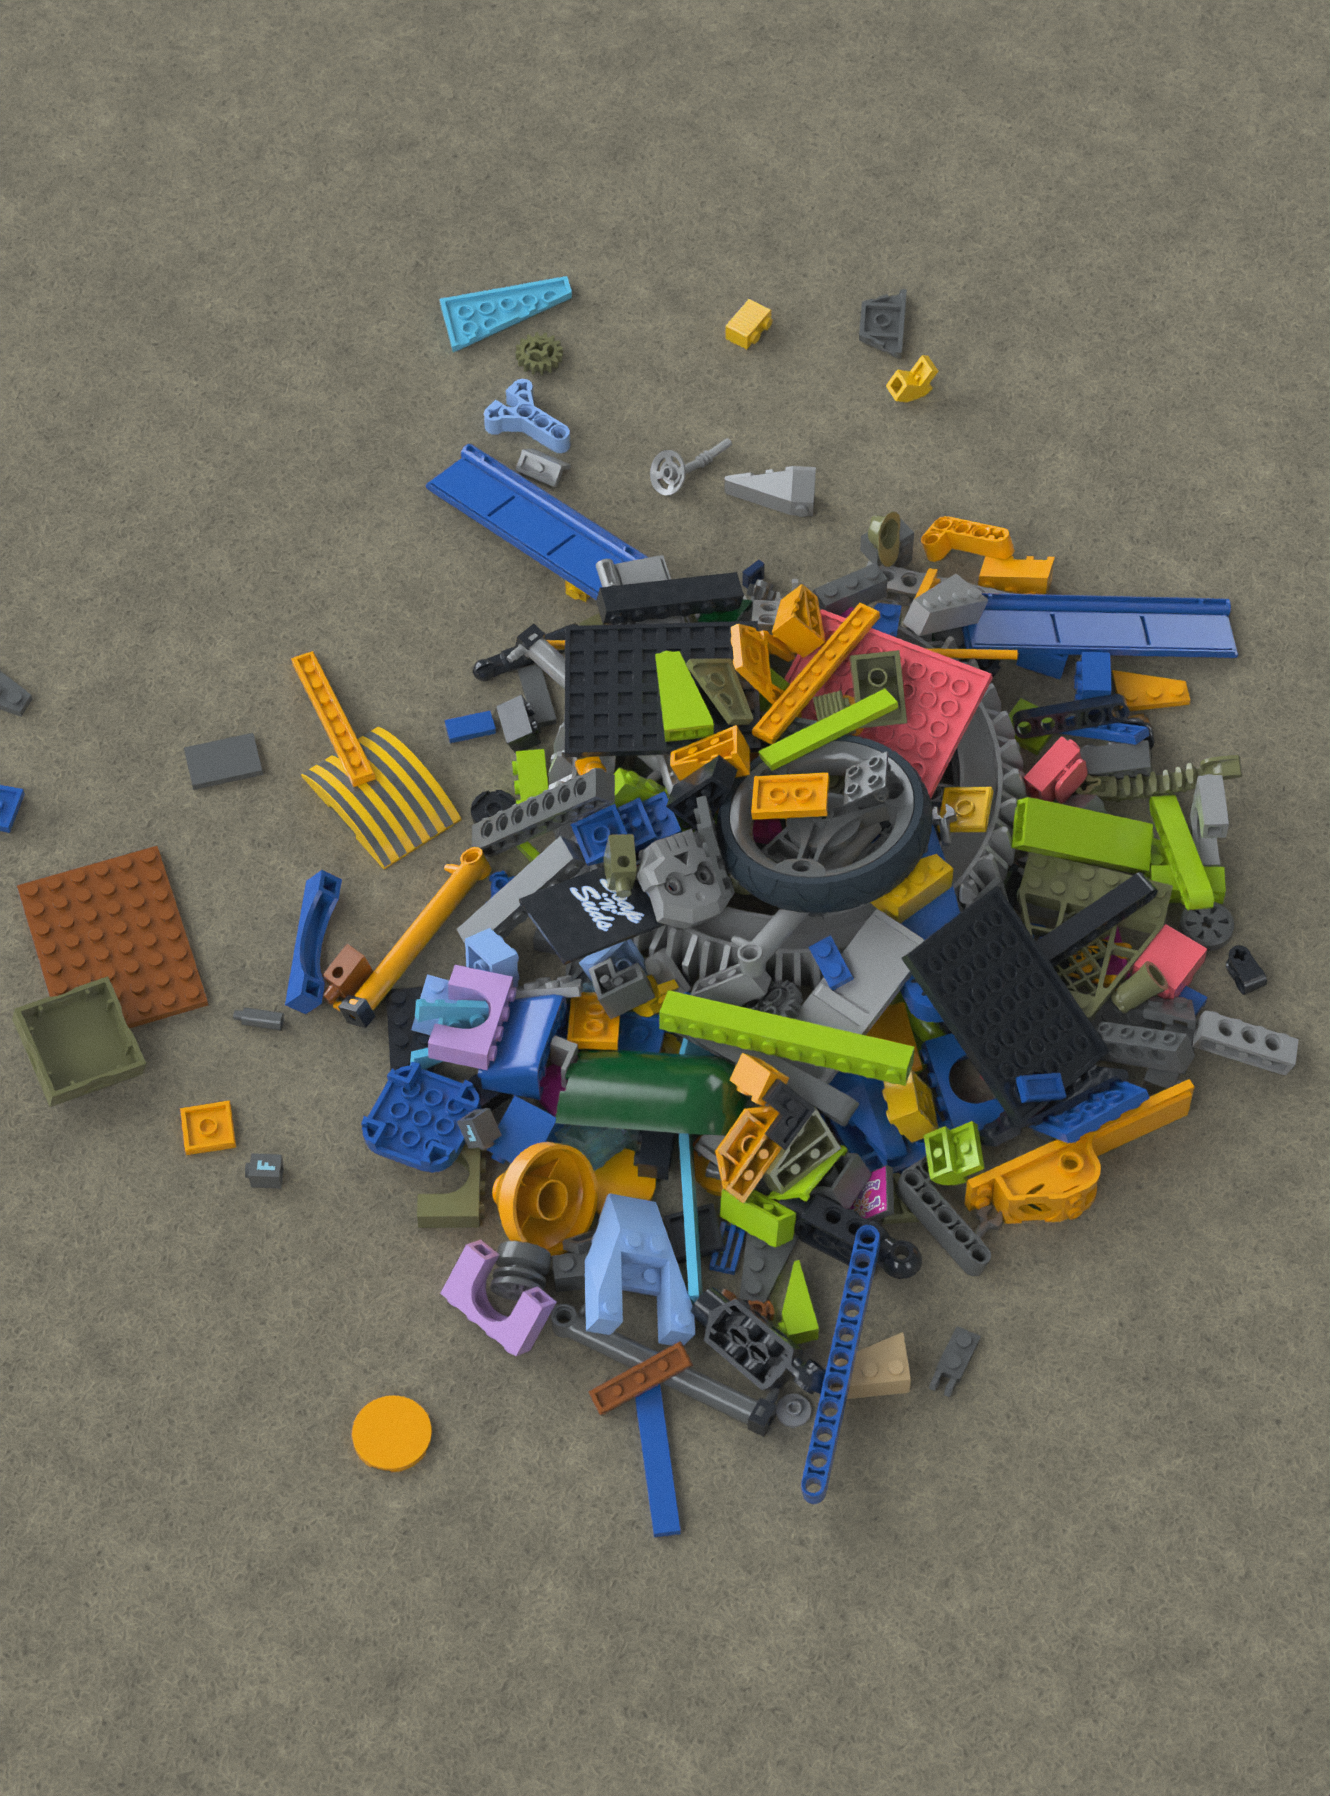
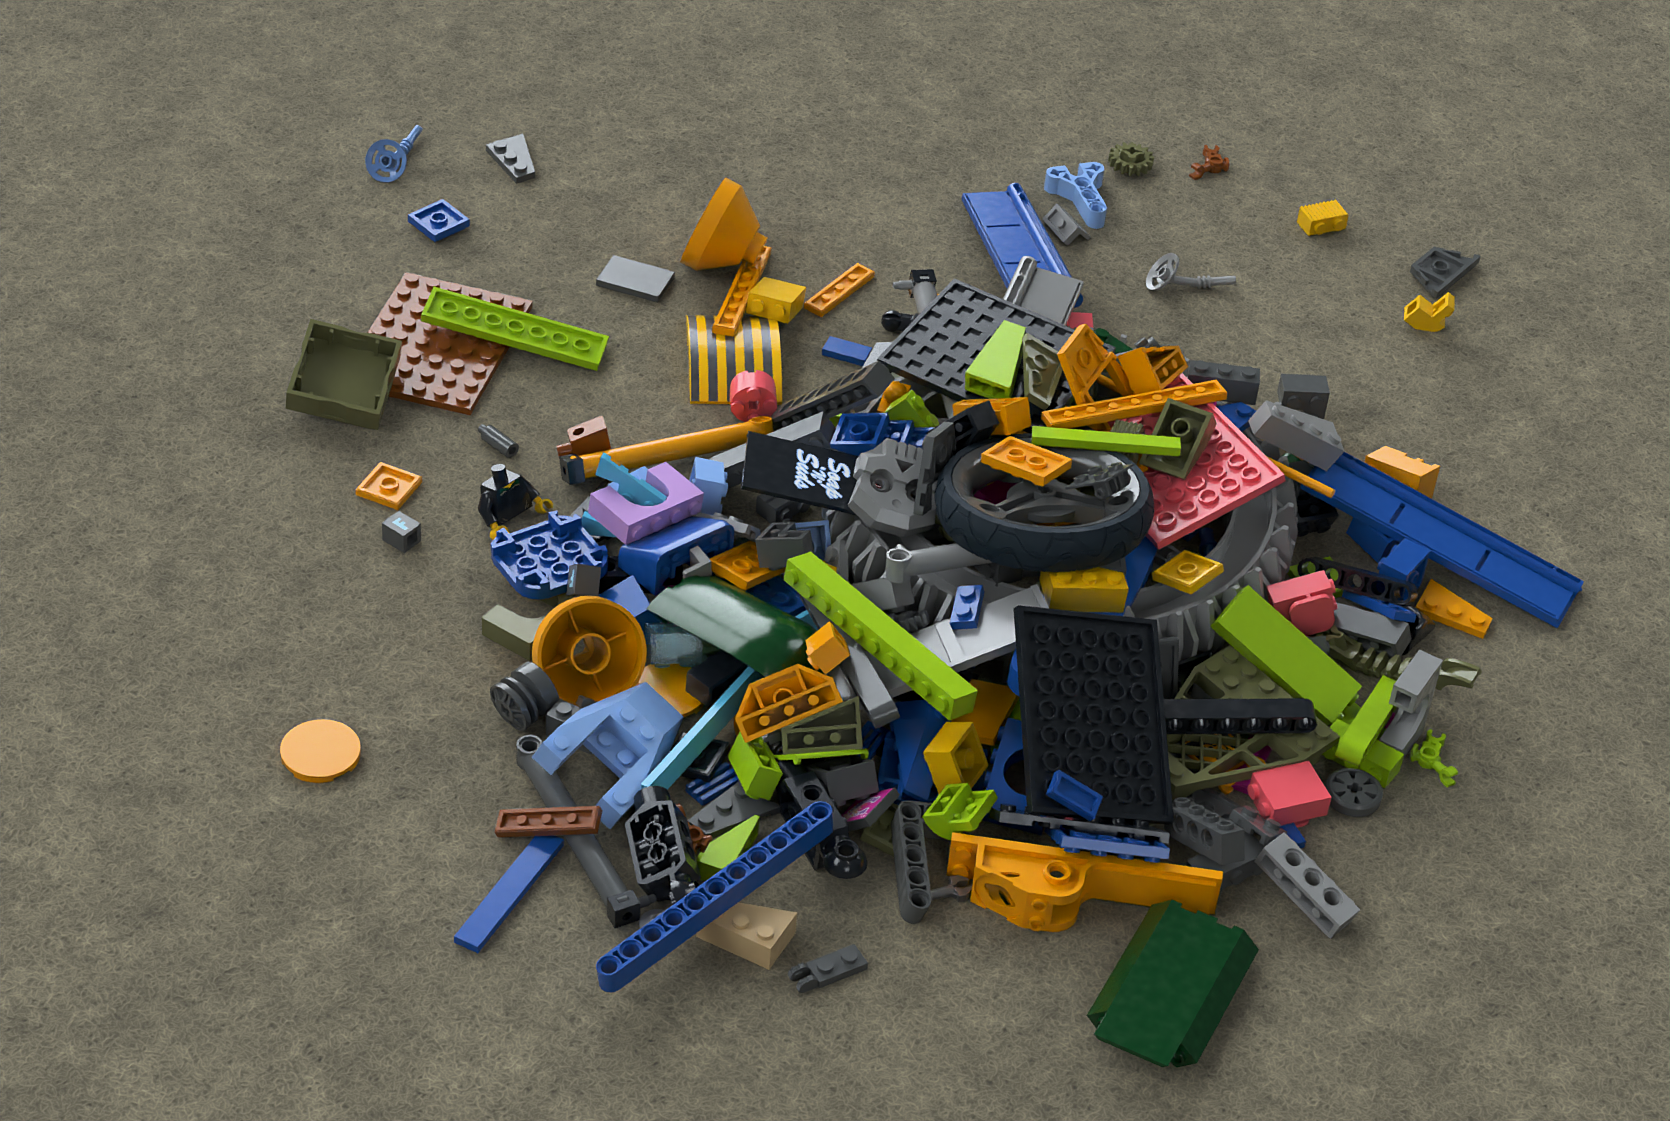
camera: 30 degrees right, 15 degrees down
(176, 890) = (514, 328): none -> lime plate
(275, 669) = (725, 231): none -> light orange cone
(305, 979) = (588, 408): blue arch -> none
(326, 1081) = (506, 497): none -> black torso
(372, 712) = (775, 300): none -> yellow brick
(408, 661) = (839, 290): none -> light orange tile
(443, 834) = (752, 395): none -> coral brick
(468, 1293) = (488, 730): lavender arch -> none
(487, 312) = (1109, 117): medium azure wing -> none
(609, 313) = (1213, 163): none -> dark orange piece
(620, 864) = (845, 455): olive torso -> none
(669, 598) = (1059, 303): black brick -> none
(783, 491) = (1249, 326): light grey wedge -> none
(792, 1115) = (835, 685): black tile -> none
(884, 536) = (1299, 379): olive piece -> none
(949, 817) = (1157, 567): flat silver bar -> none
(966, 536) = (1375, 424): light orange beam -> none
(1139, 987) = (1242, 790): olive plant -> none
(1216, 1205) = (1172, 985): none -> dark green panel
(1237, 854) = (1429, 758): none -> lime piece
(1245, 970) = (1358, 839): black piece -> none

